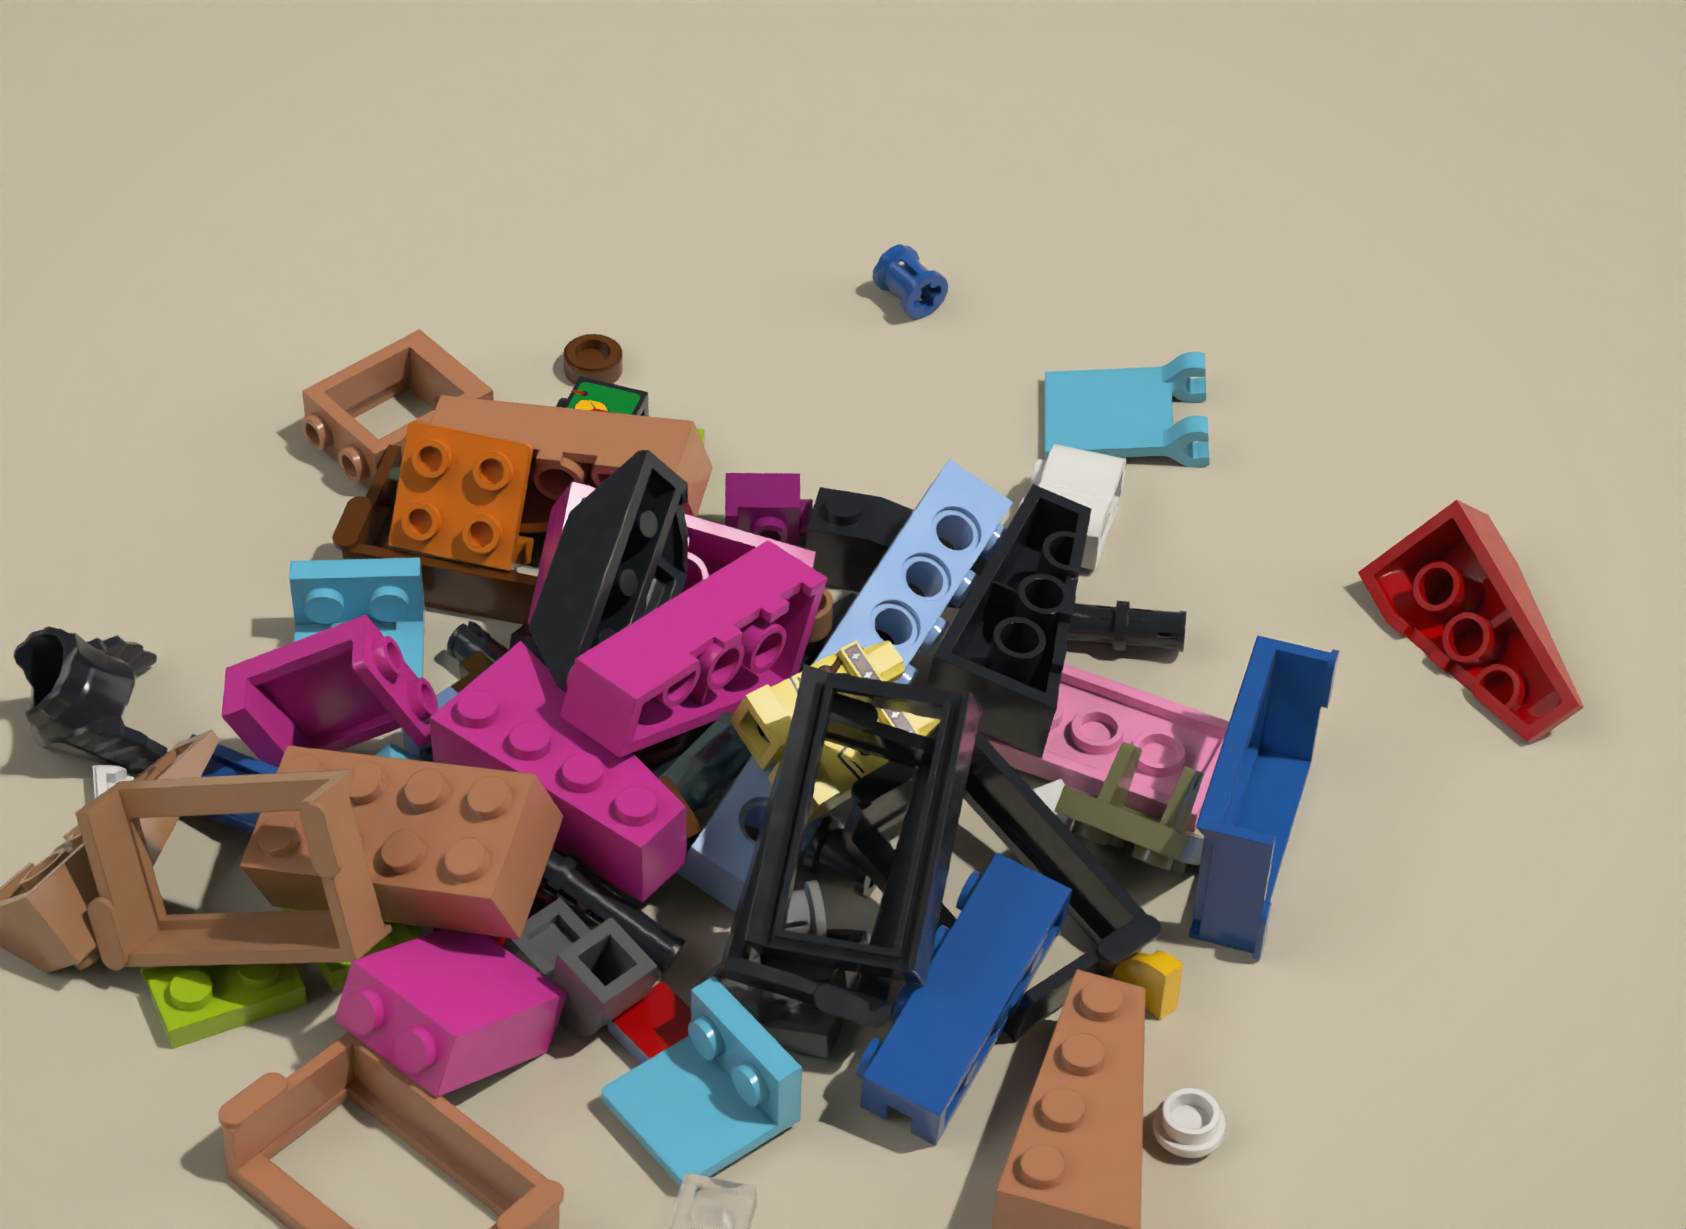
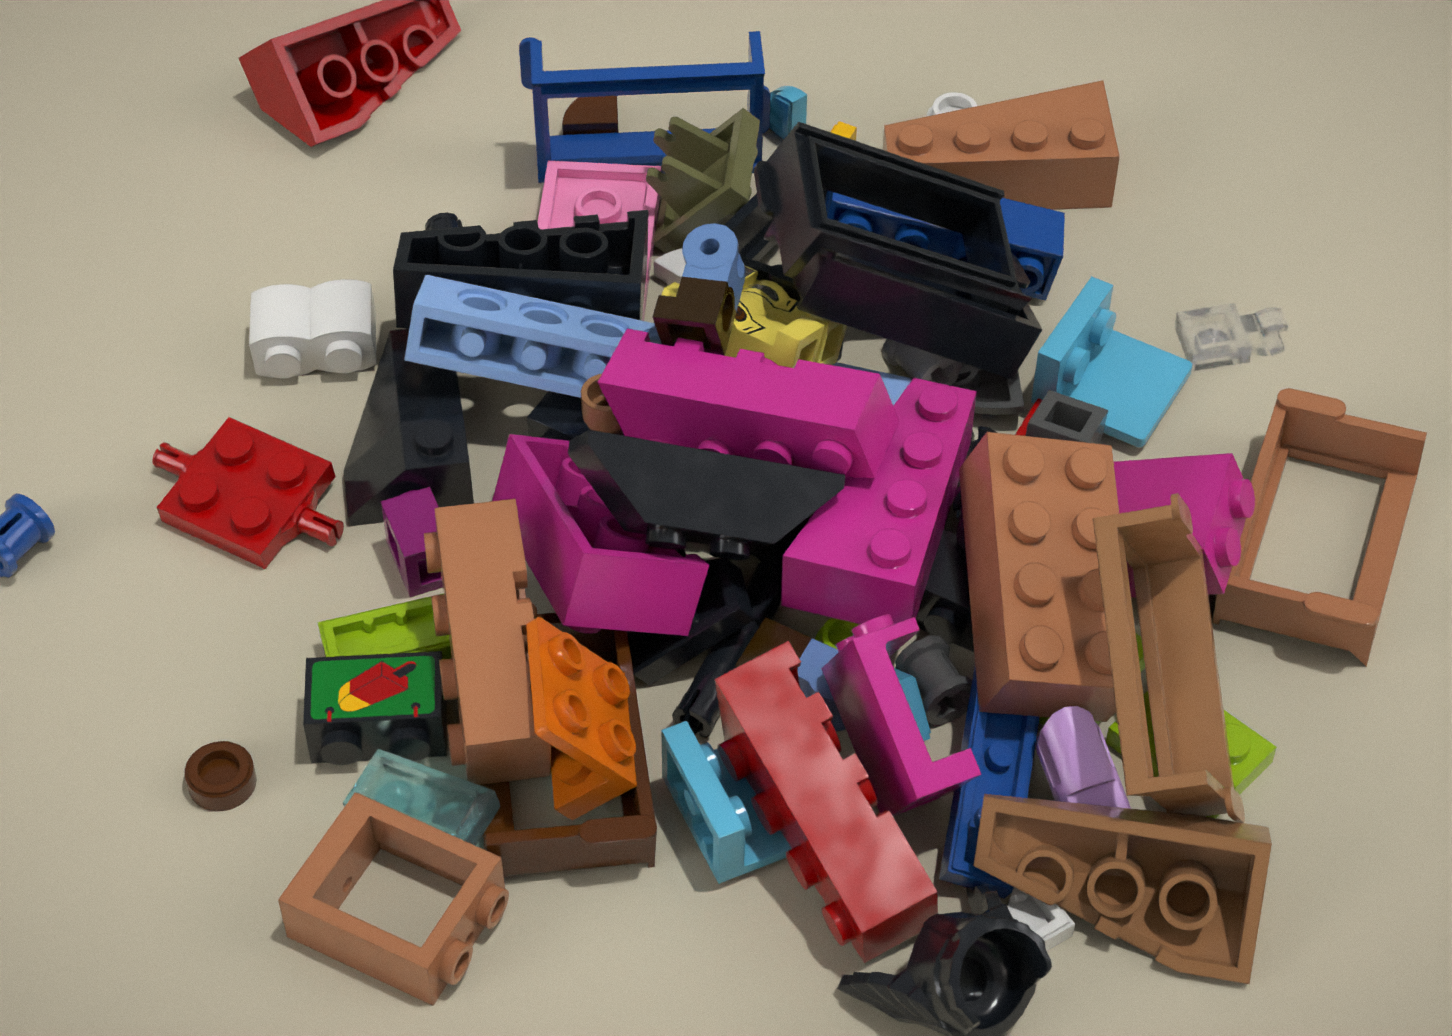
camera: 110 degrees left, 5 degrees up
(193, 652) = (821, 805): none -> wedge
(205, 859) = (1079, 760): none -> lavender arm
(827, 624) = (706, 293): none -> leg
(892, 432) = (247, 493): none -> red plate
(1129, 411) = (153, 346): medium azure flag -> none
(1258, 962) = (787, 108): none -> medium azure tile
(1330, 808) = (591, 116): none -> reddish brown tile

